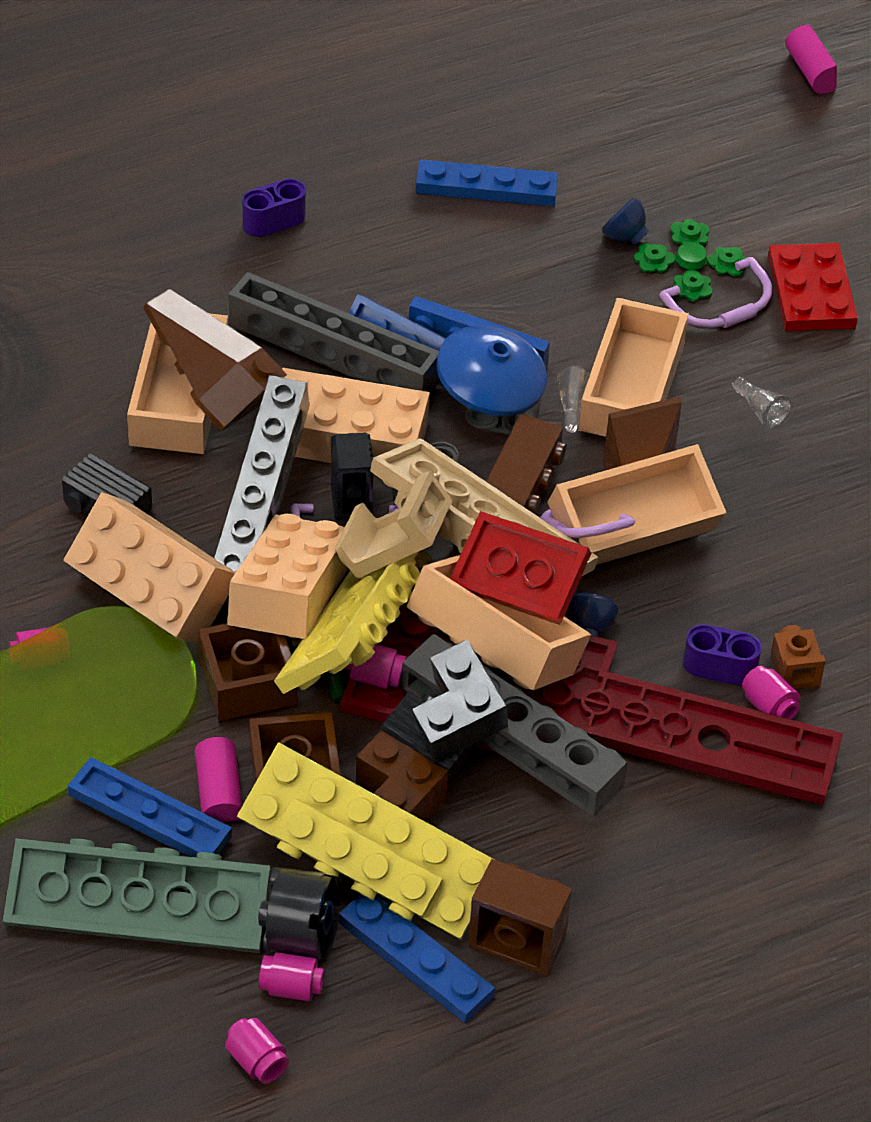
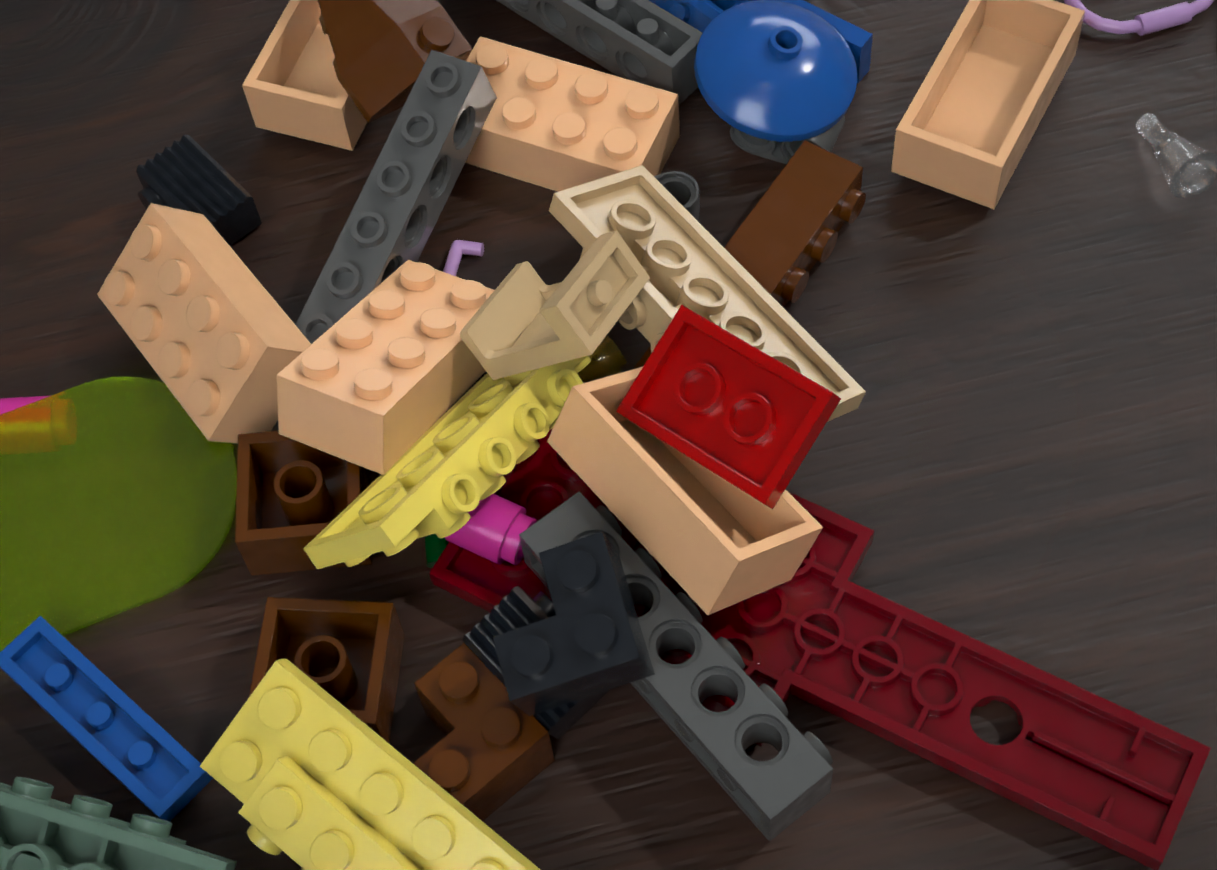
camera: 20 degrees right, 10 degrees up
(218, 779) = (218, 676): dark pink brick -> none
(351, 473) = (524, 205): black brick -> none
(572, 385) = (892, 100): clear cone -> none
(592, 612) = (841, 477): dark blue brick -> none
(624, 522) = (814, 325): lavender piece -> none
(641, 432) = (976, 208): reddish brown slope -> none
(664, 494) = (949, 308): light nougat piece -> none
(720, 653) = (1039, 563): dark purple beam -> none
(771, 693) = (1103, 655): dark pink brick -> none
(794, 650) = (1154, 611): dark orange brick -> none

